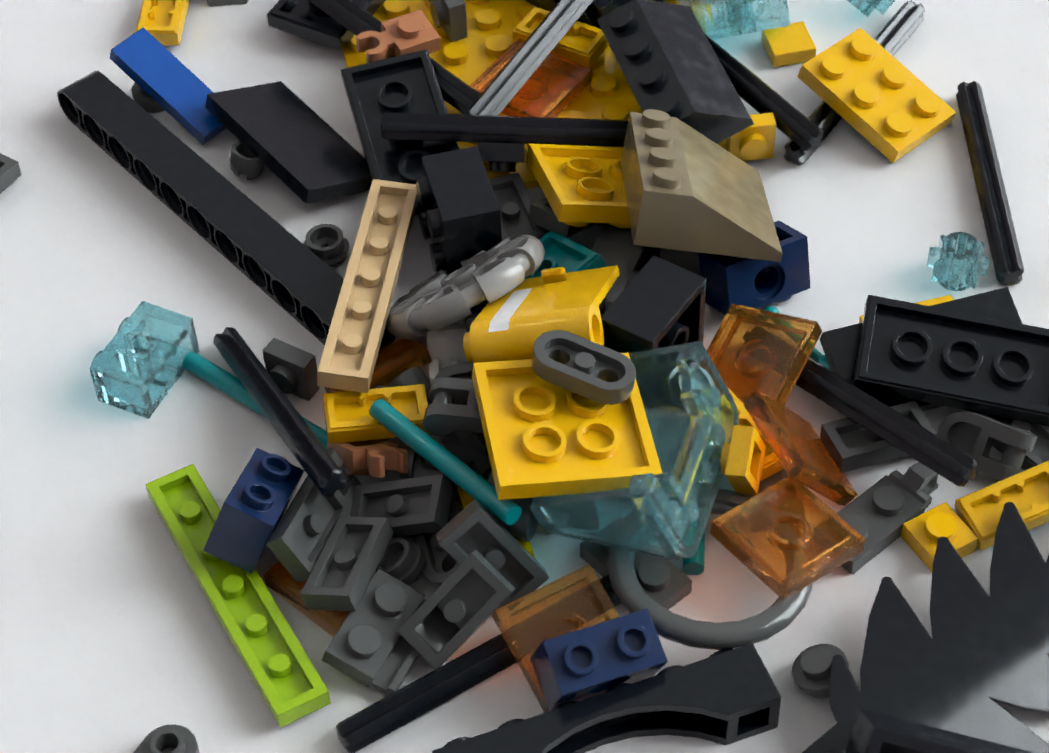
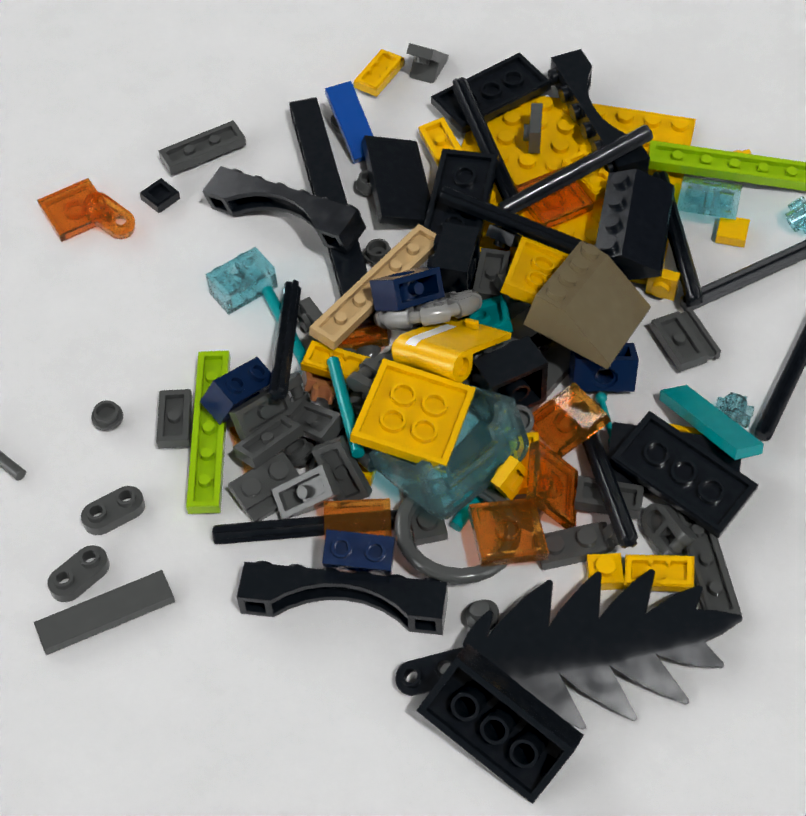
camera: 30 degrees right, 5 degrees up
(51, 639) = (107, 415): none -> dark grey plate
(62, 239) = (241, 193): none -> black arch
(168, 597) = (174, 418): none -> dark grey plate
(314, 68) = (438, 136): none -> yellow plate
(399, 37) = (489, 141): nougat plate -> none
(427, 265) = (407, 289): none -> dark blue brick
(583, 367) = (439, 388): dark grey plate -> none
(828, 196) = (685, 339): none -> dark grey plate
(876, 94) = (759, 286): yellow plate -> none
(949, 280) = (711, 422): none -> teal tile

